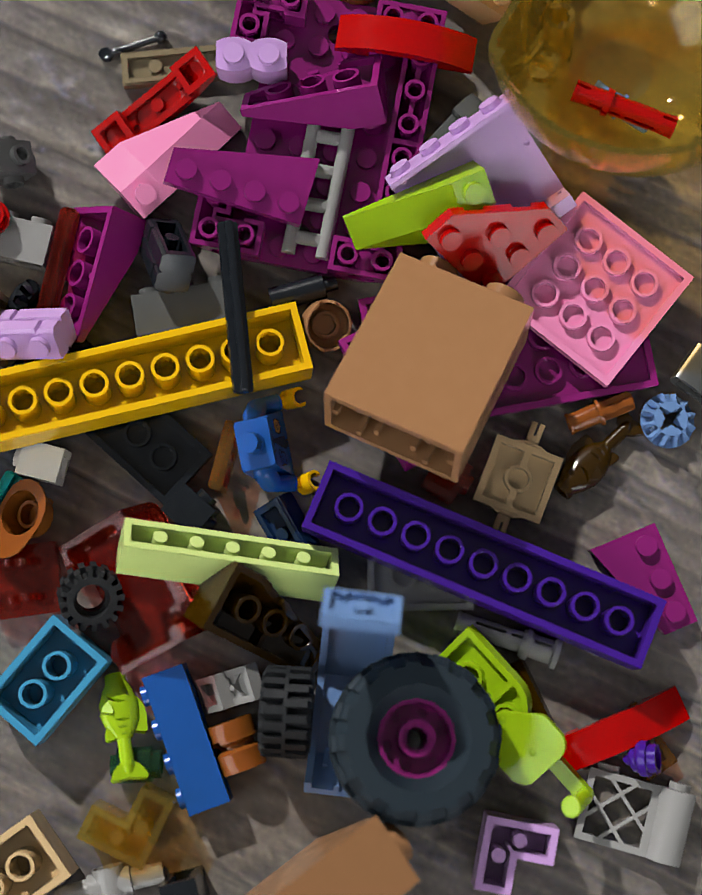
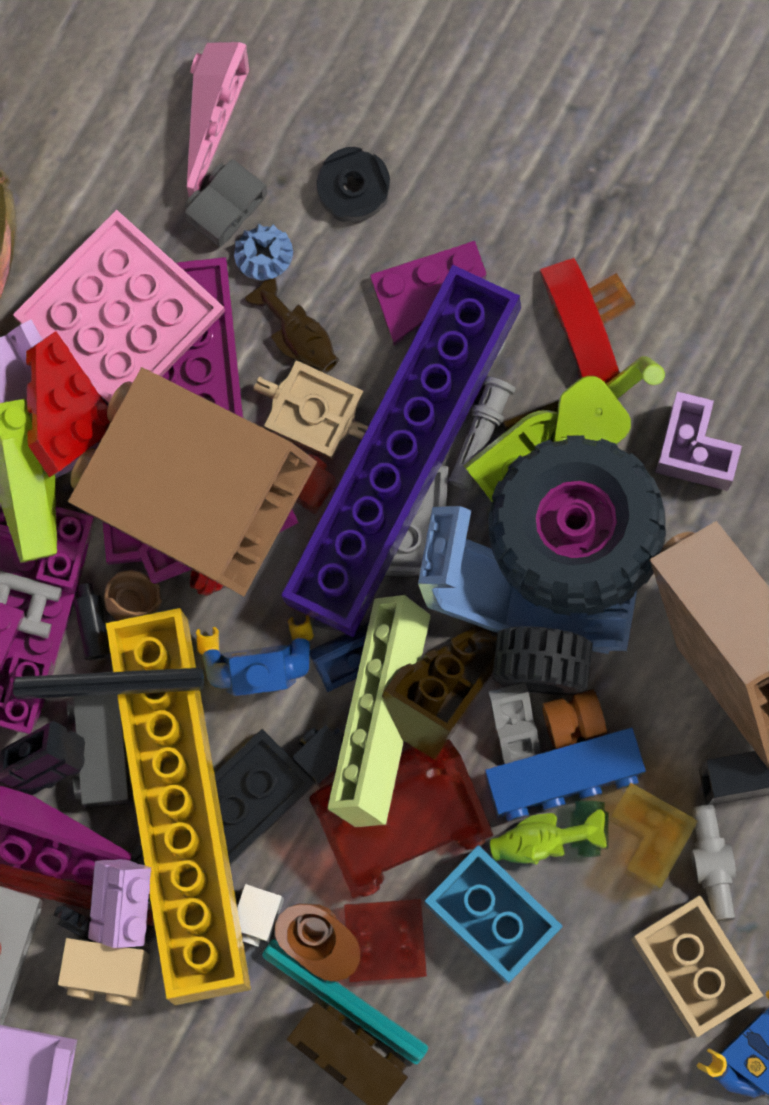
camera: 90 degrees left, 5 degrees down
(100, 614) = (394, 878): black tyre -> none
(224, 459) = (266, 714): clear orange tile -> none
(599, 412) = (249, 320): dark orange axle -> none
(644, 758) = (611, 304): dark purple plate -> none
(665, 821) = (677, 290): light grey piece -> none

